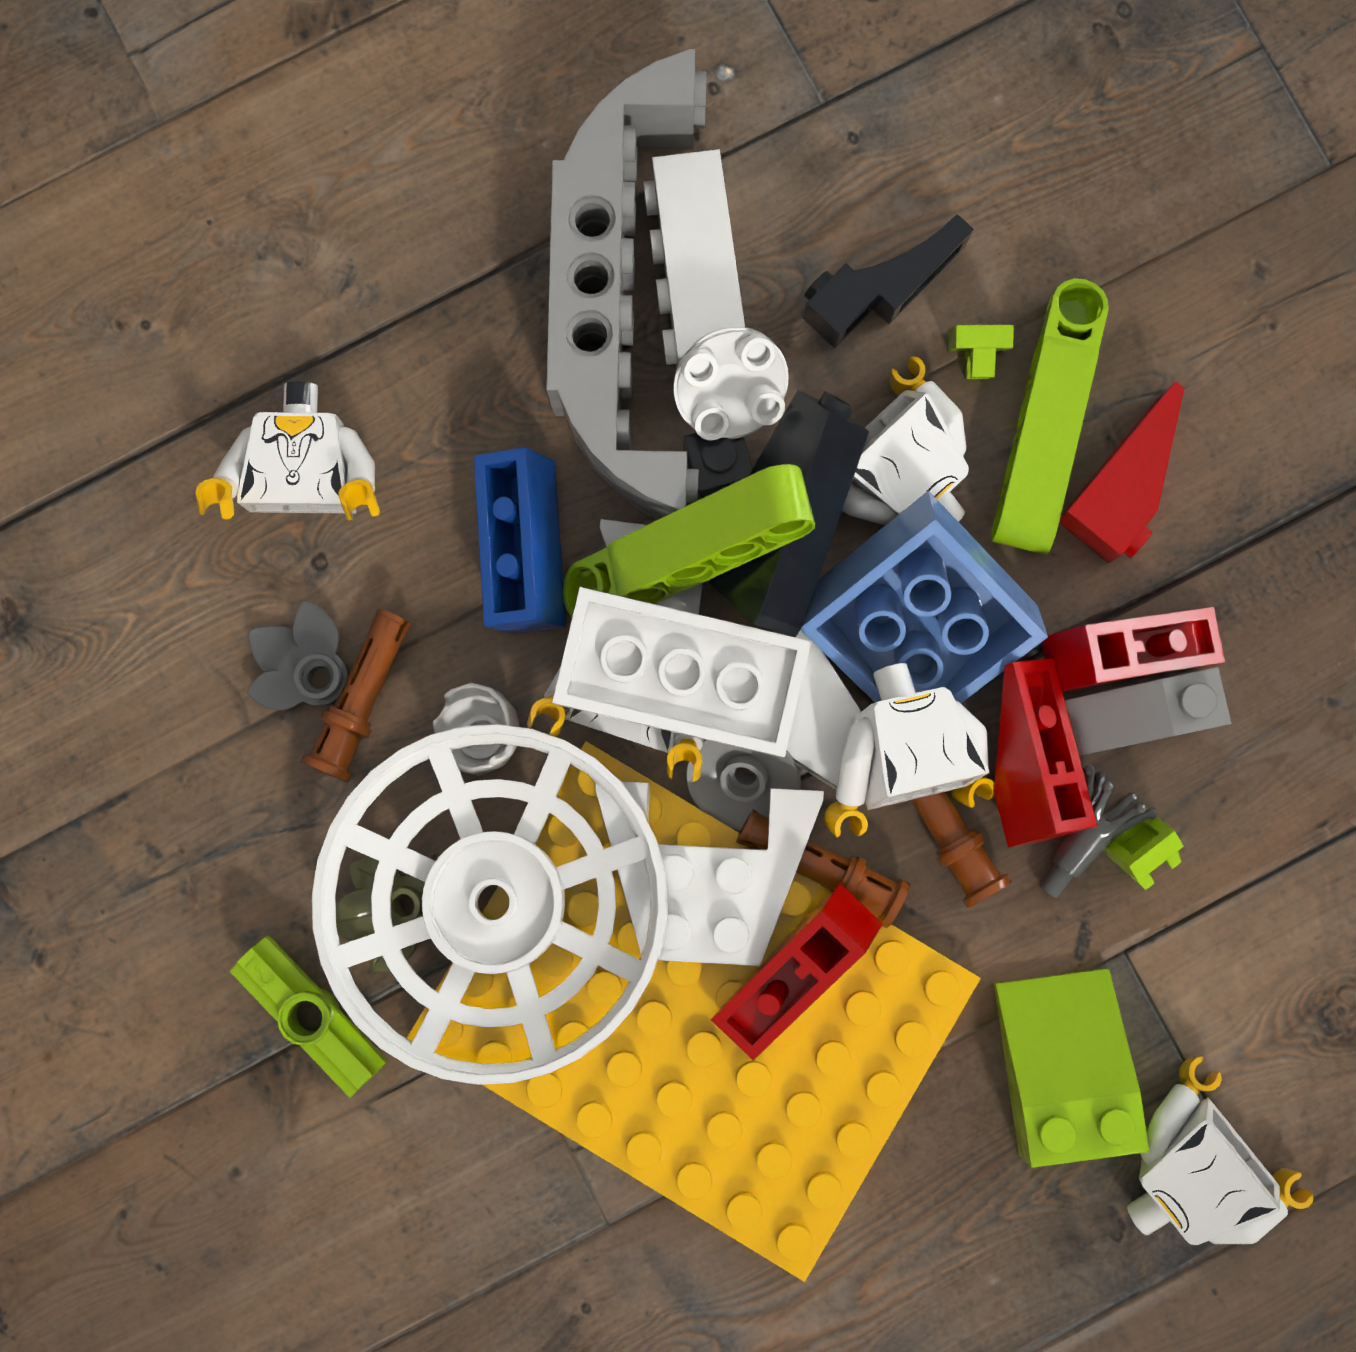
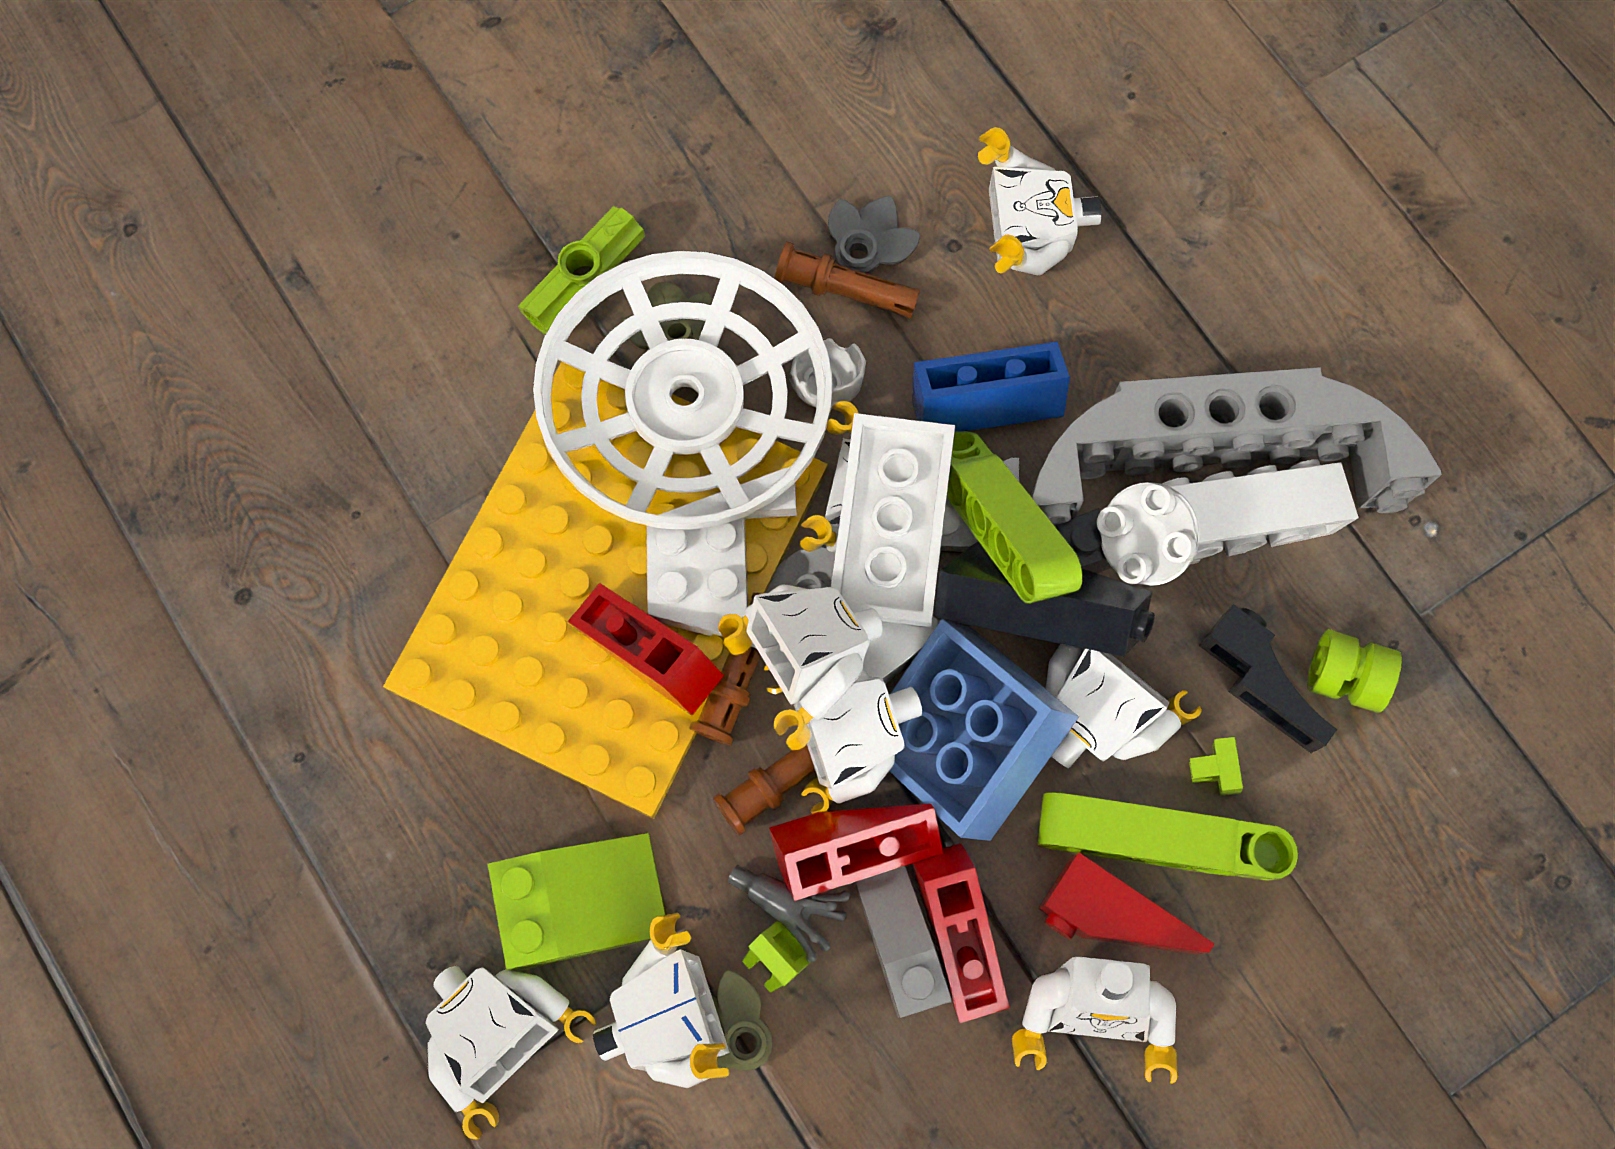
camera: 85 degrees right, 10 degrees down
(834, 783) = (809, 646): none -> white torso
(892, 174) = (1362, 673): none -> lime wheel
(1208, 923) = (739, 1012): none -> olive plate
(1208, 976) = (665, 1013): none -> white torso
(1224, 509) = (1101, 1001): none -> white torso

